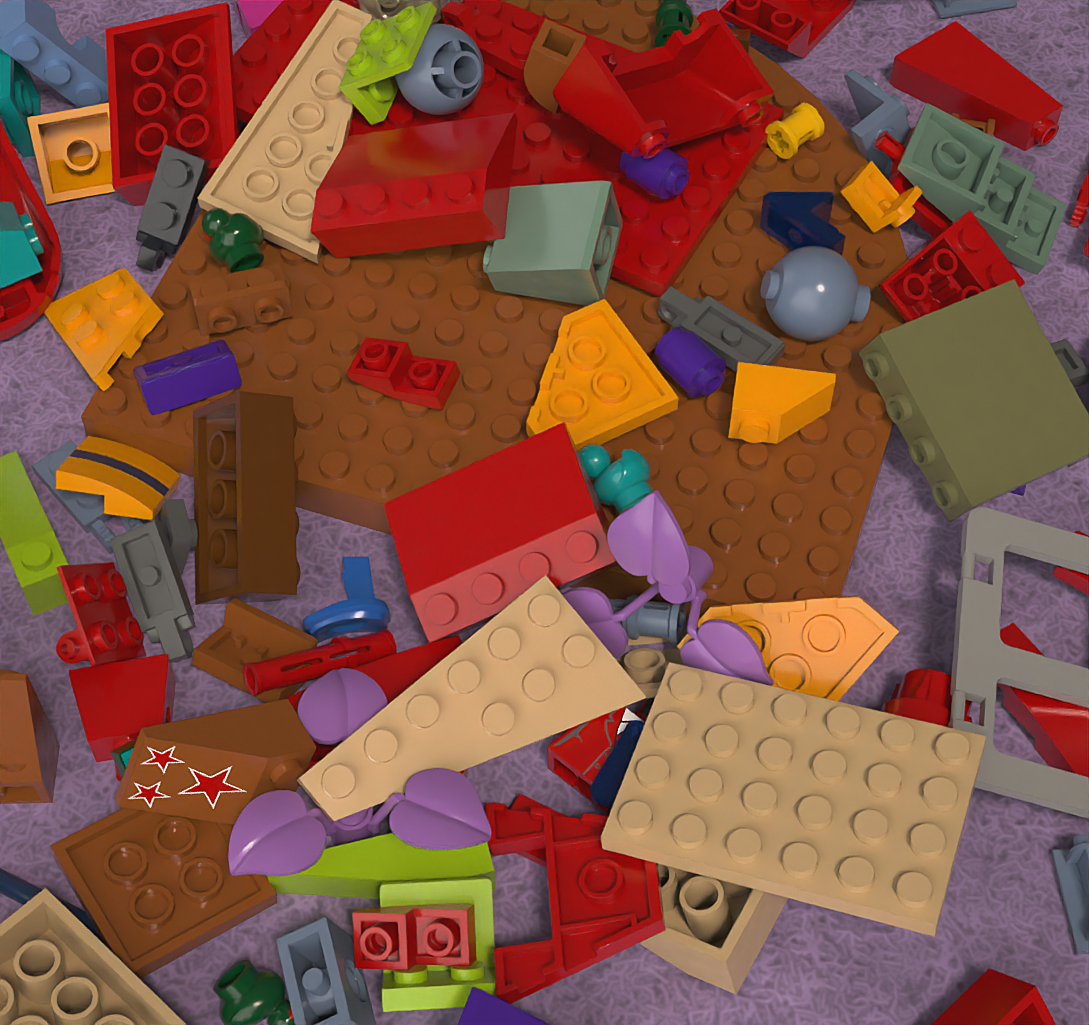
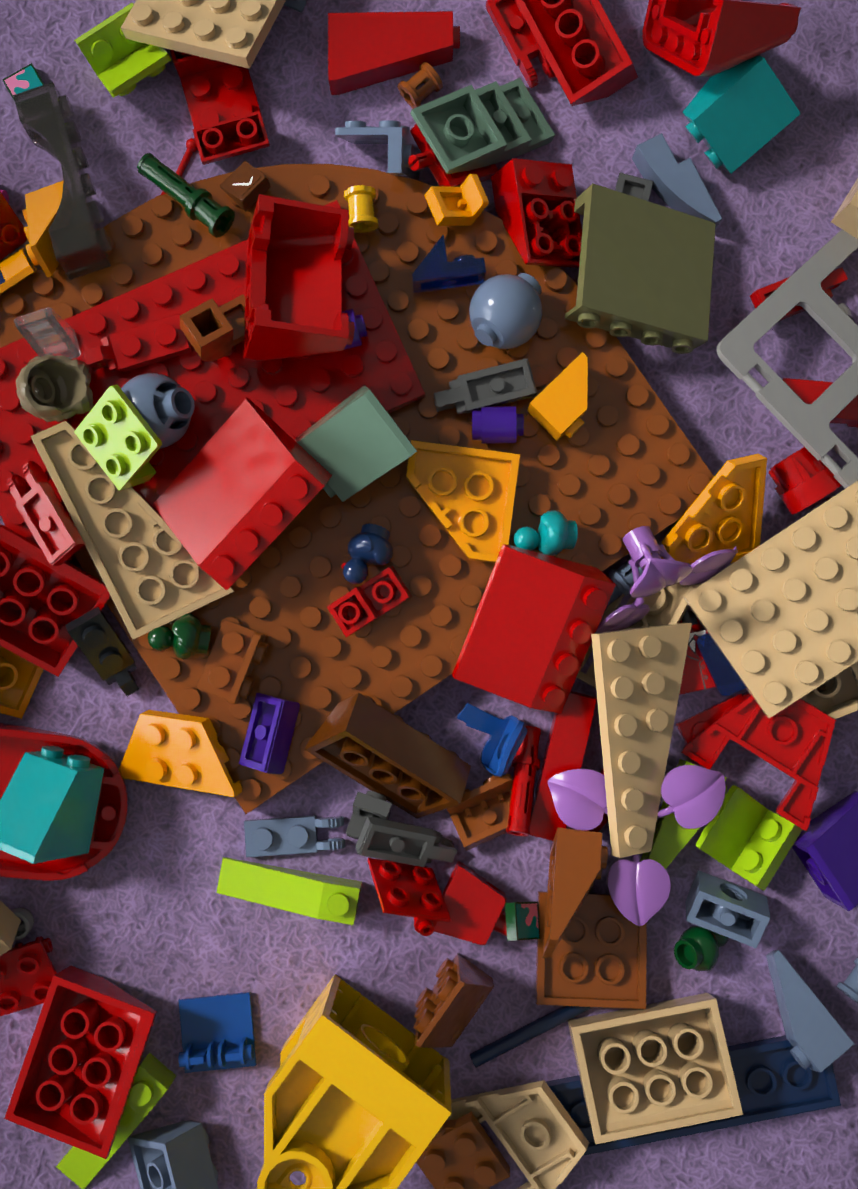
camera: 50 degrees left, 30 degrees up
(128, 478) = (305, 816): light orange slope -> none
(266, 58) = (44, 514): none -> red hinge
(414, 935) = (727, 855): red slope -> none
(457, 331) = (365, 548): none -> dark blue animal

